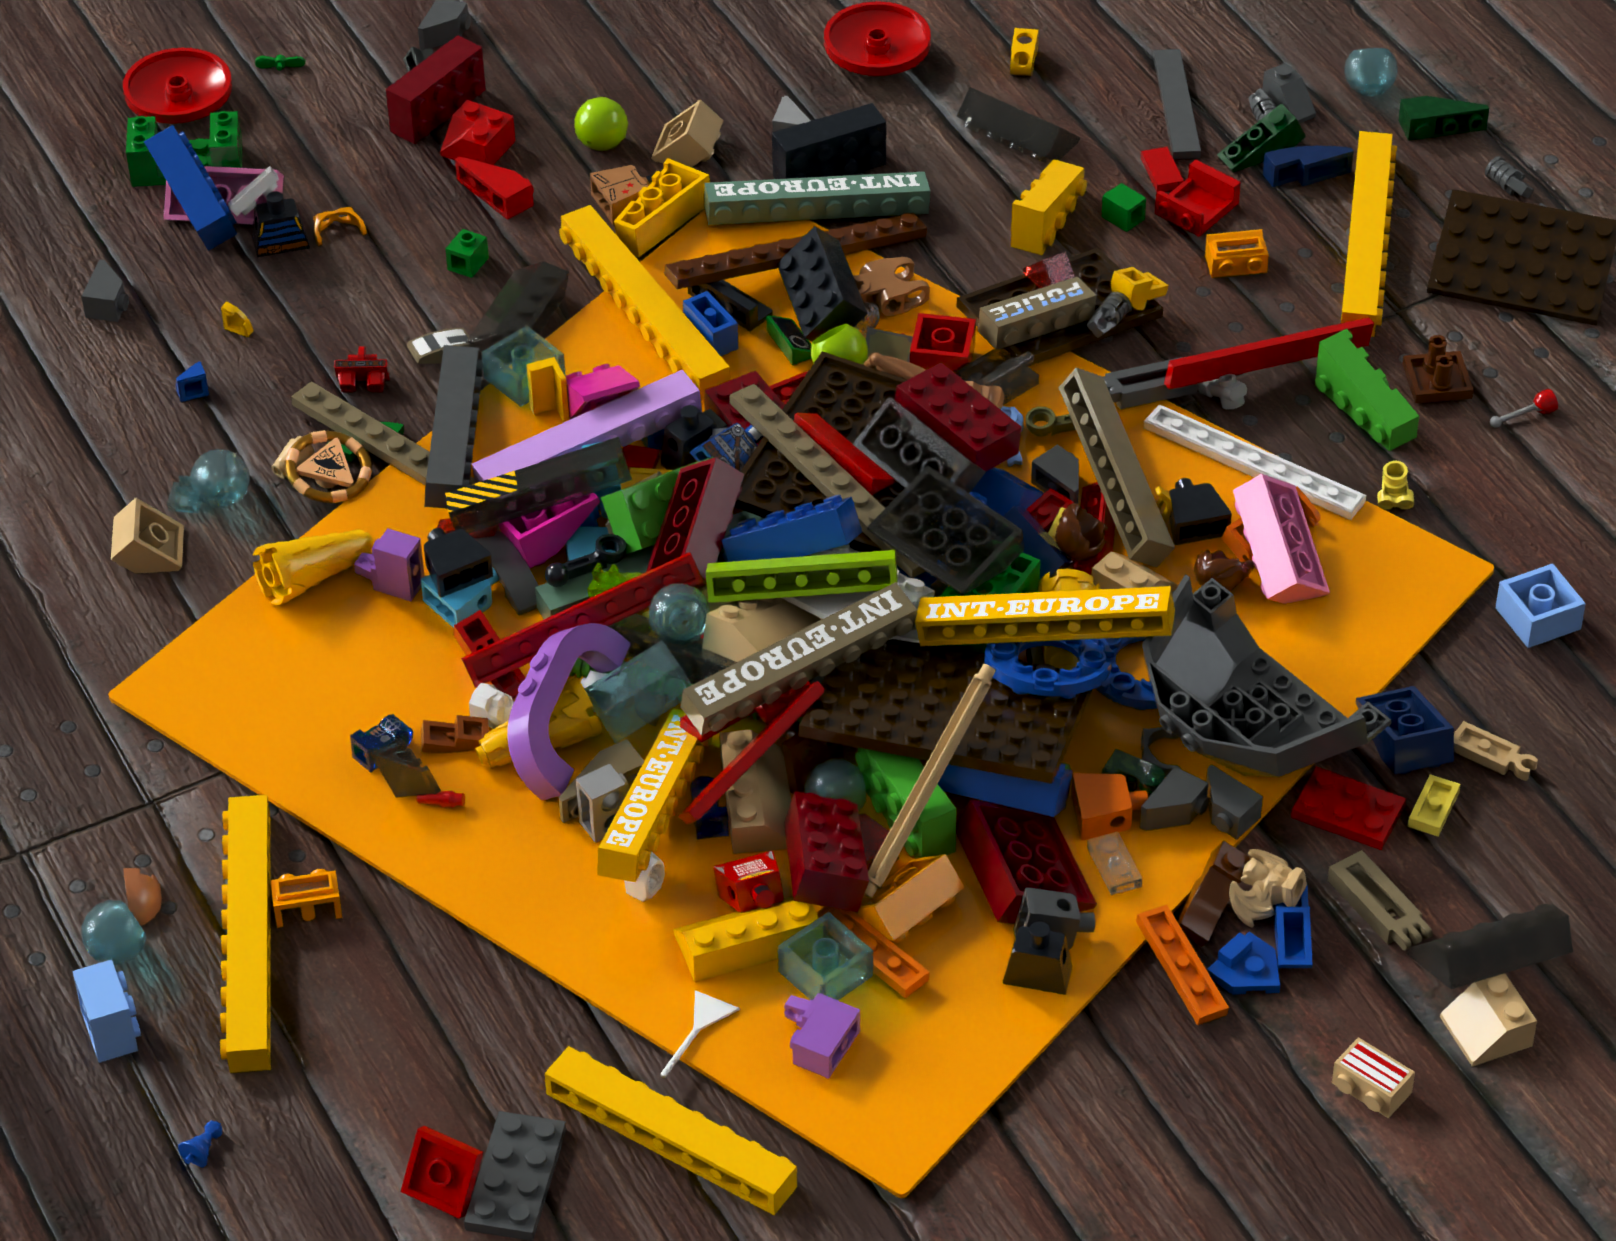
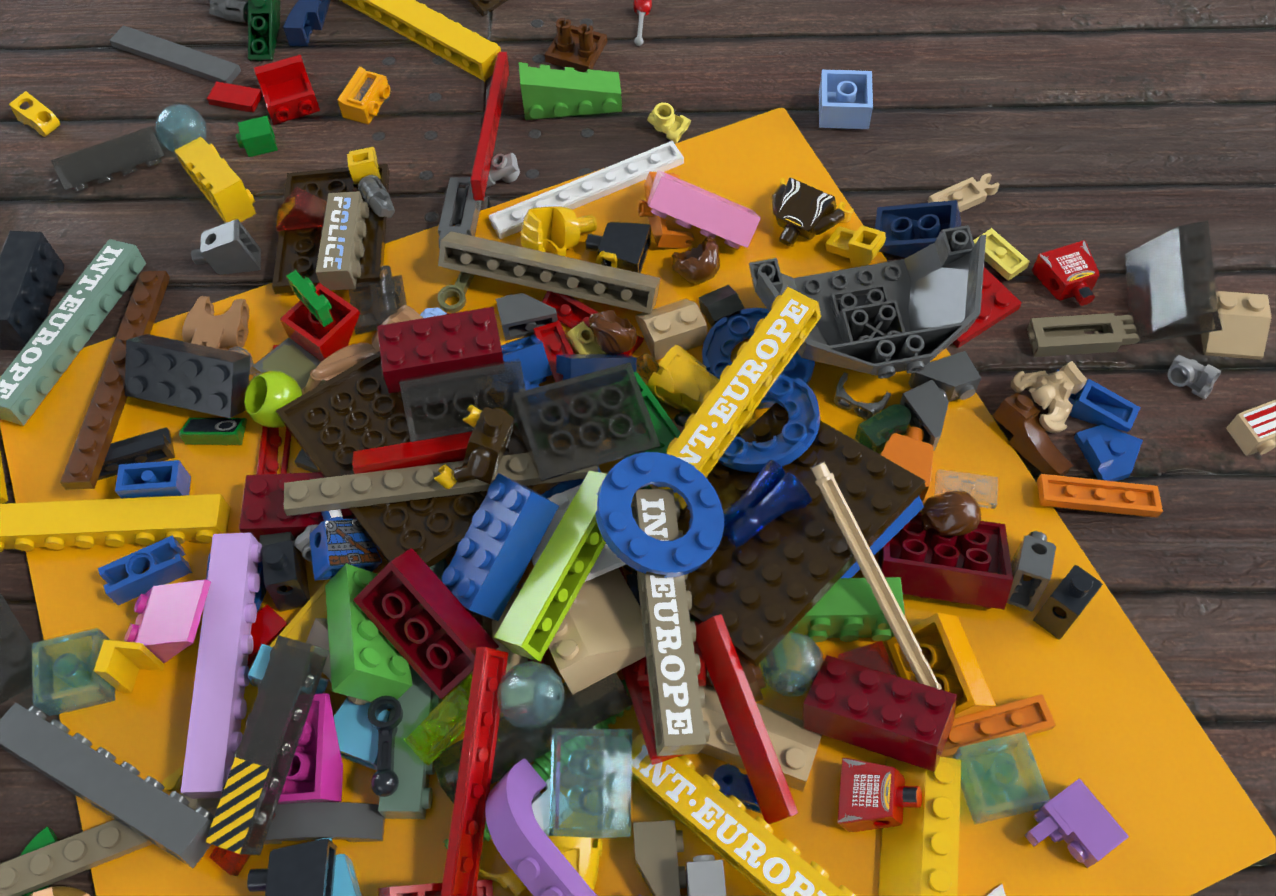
camera: 60 degrees left, 15 degrees up
(637, 359) = (125, 575): none -> blue piece
(869, 474) = (484, 449): none -> dark brown torso
(873, 643) = (632, 543): none -> blue plate
(945, 677) = (764, 500): none -> clear blue piece
(948, 315) = (306, 292): none -> green plate
(978, 254) = (228, 249): none -> dark grey torso
(1067, 847) = (951, 513): none -> reddish brown hair
(1087, 148) = (179, 125): none -> clear light blue helmet
(1170, 450) = (554, 229): none -> yellow piece
(1339, 678) = (857, 245): none -> yellow brick
(1350, 625) = (805, 211): none -> dark brown torso
(1395, 1001) = (1194, 375): none -> light grey plate
(1454, 866) = (1068, 272): none -> red torso

